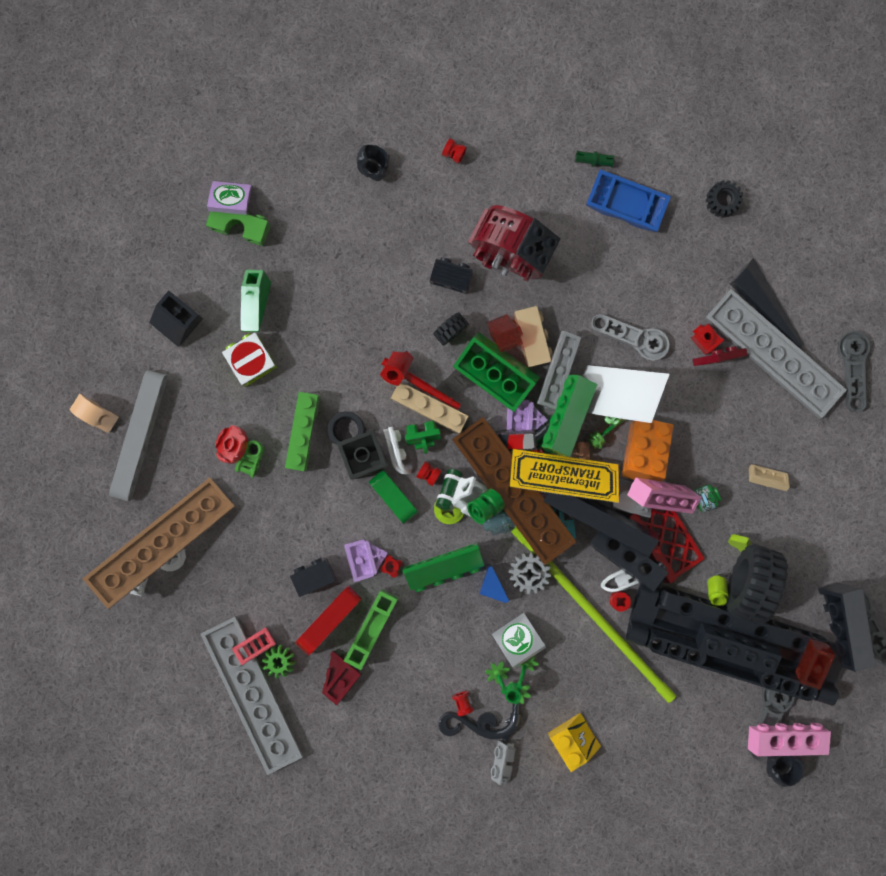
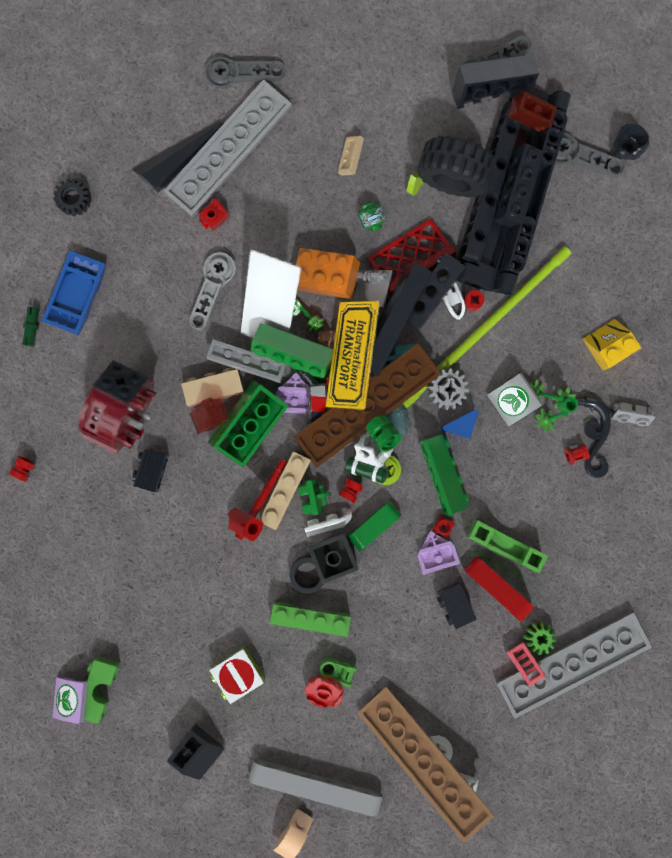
camera: 100 degrees left, 0 degrees up
(254, 297) = (175, 672): slope -> none
(339, 678) = (555, 576): dark red wing -> none
(372, 162) = (33, 552): black hair -> none
(450, 328) = (204, 470): black tyre -> none
(664, 495) = (371, 257): bright pink brick -> none
(717, 590) = (461, 205): lime brick -> none
(720, 355) = (230, 201): dark red wing -> none
(789, 740) = (604, 138): bright pink brick -> none

